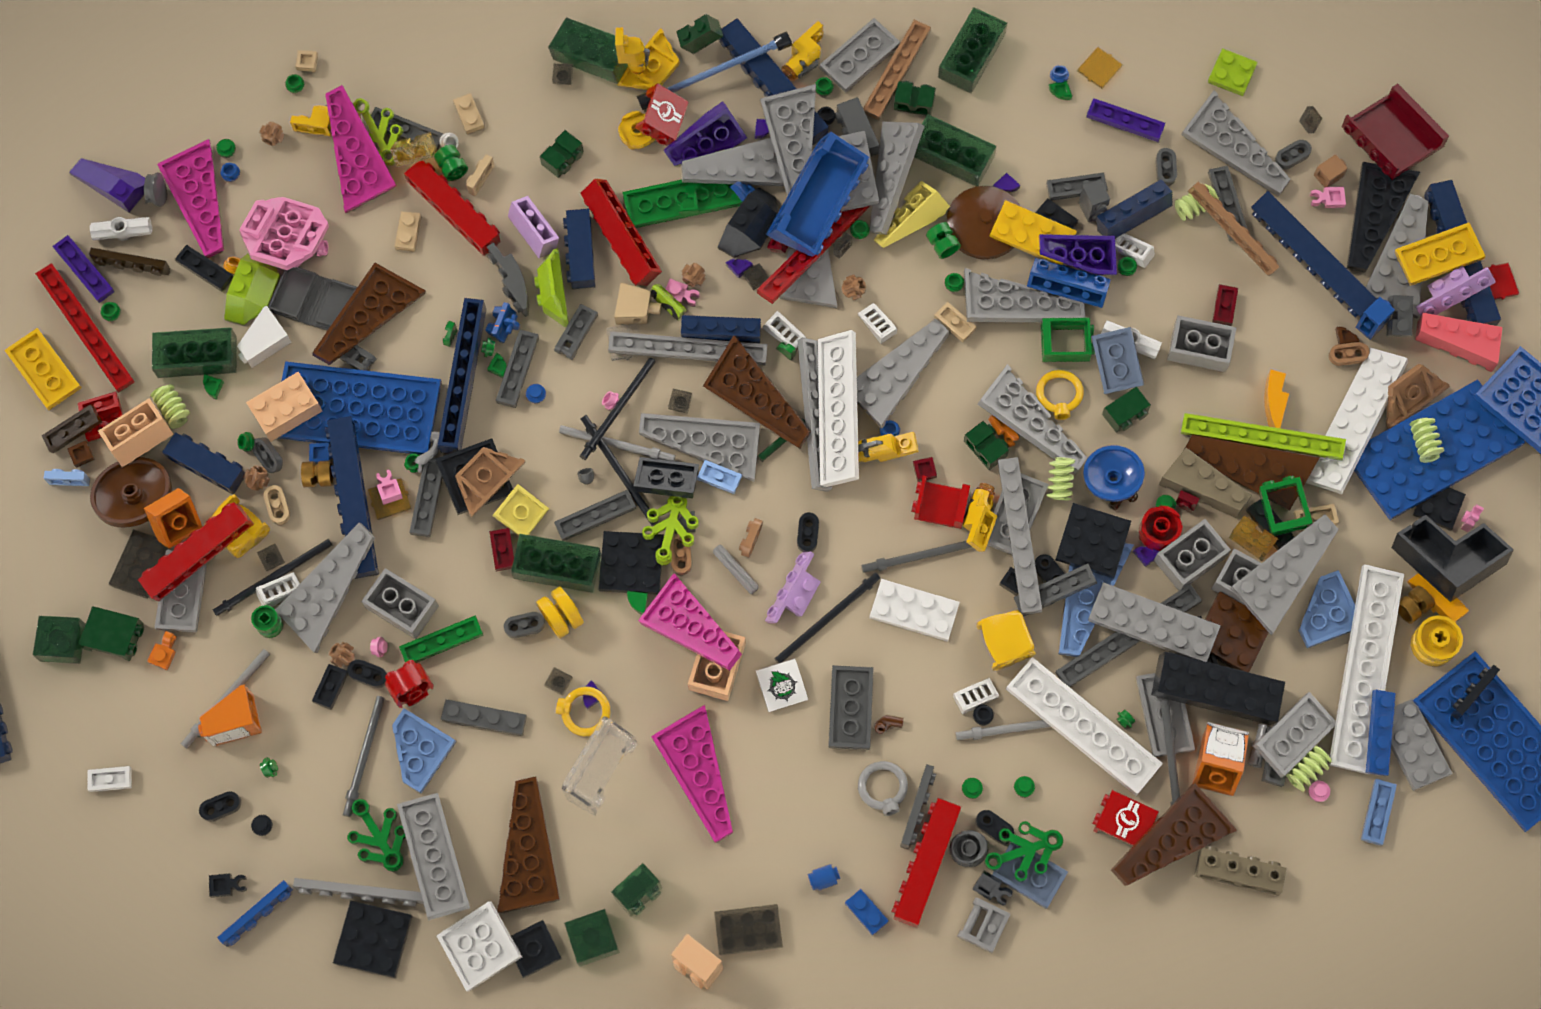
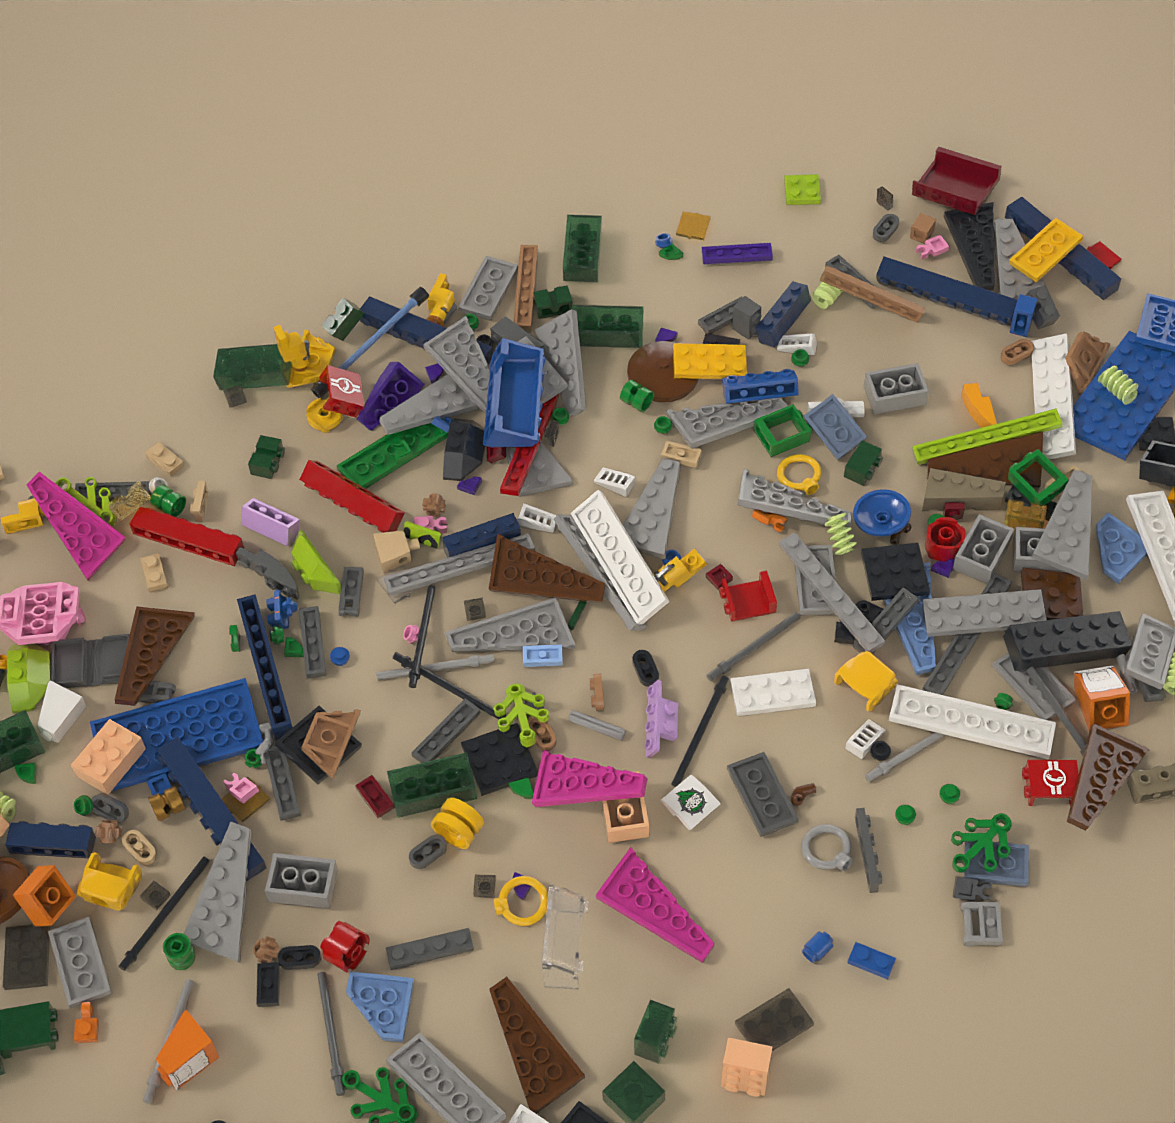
camera: 25 degrees left, 15 degrees down
(195, 551) = (81, 915): red brick -> none
(269, 767) = (243, 1083): green plate -> none
(275, 584) = (164, 929): white slope -> none
(378, 646) = (298, 929): bright pink plate -> none
(441, 640) = (356, 897): green plate -> none
(520, 511) = (375, 757): light yellow tile -> none
(580, 249) = (321, 524): dark blue brick -> none
(586, 475) = (421, 704): dark grey hinge -> none
(666, 477) = (495, 674): black plate -> none
(755, 276) = (489, 487): clear smoke plate -> none
(787, 350) = (547, 532): green tile -> none
(853, 287) = (580, 460): medium nougat gear -> none
(921, 208) = (602, 381): light yellow wedge -> none
(927, 862) = (902, 892): red brick -> none
(968, 848) = (931, 864): dark grey piece -> none
(979, 517) = (789, 593): yellow plate -> none
(986, 445) = (761, 537): dark green brick -> none
(993, 828) = (942, 840): black plate -> none
(1084, 252) = (760, 355): dark purple wedge -> none
(1166, 168) = (791, 273): dark grey plate -> none
(1225, 305) = (896, 353): dark red plate -> none
(1229, 140) = (834, 238): light grey wing -> none
(1345, 336) = (1004, 341): reddish brown tile -> none
(1454, 289) = (1072, 271): lavender bracket -> none
(1461, 338) = (1098, 305): coral wedge -> none

